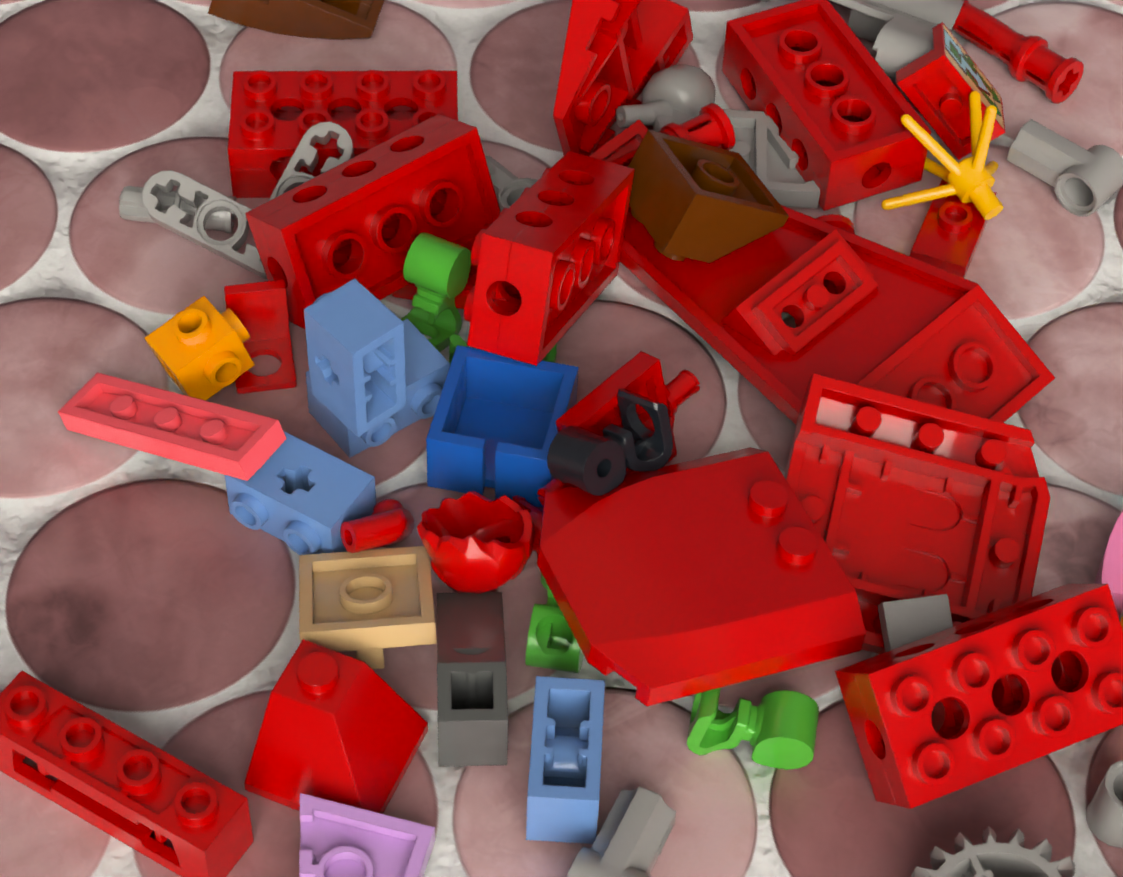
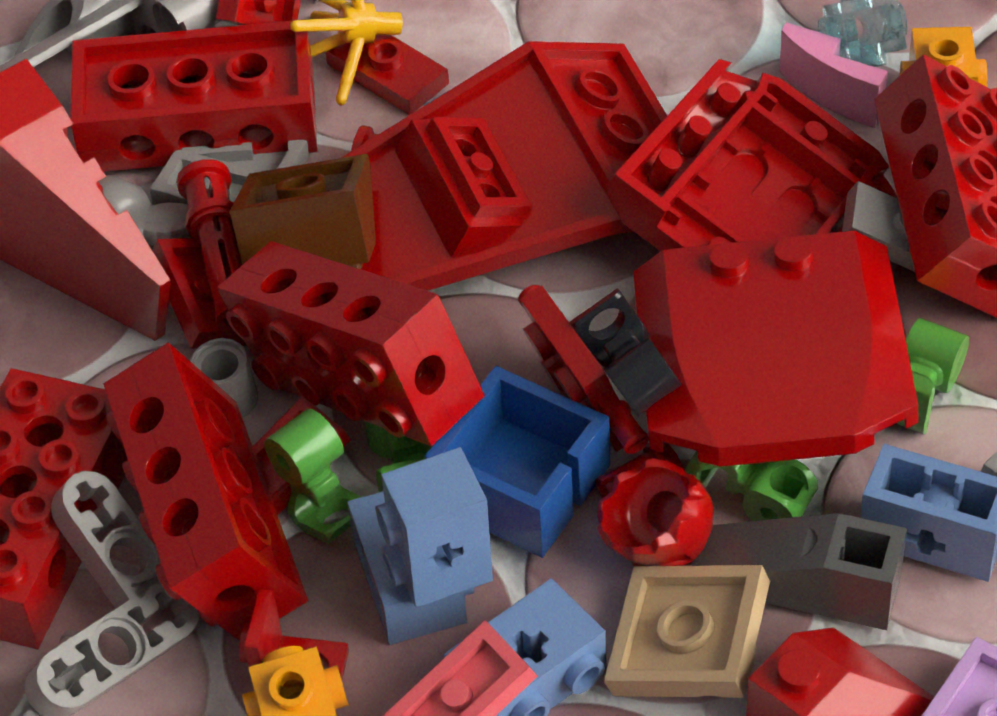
camera: 65 degrees left, 0 degrees up
(385, 526) = (600, 599): red arm -> none

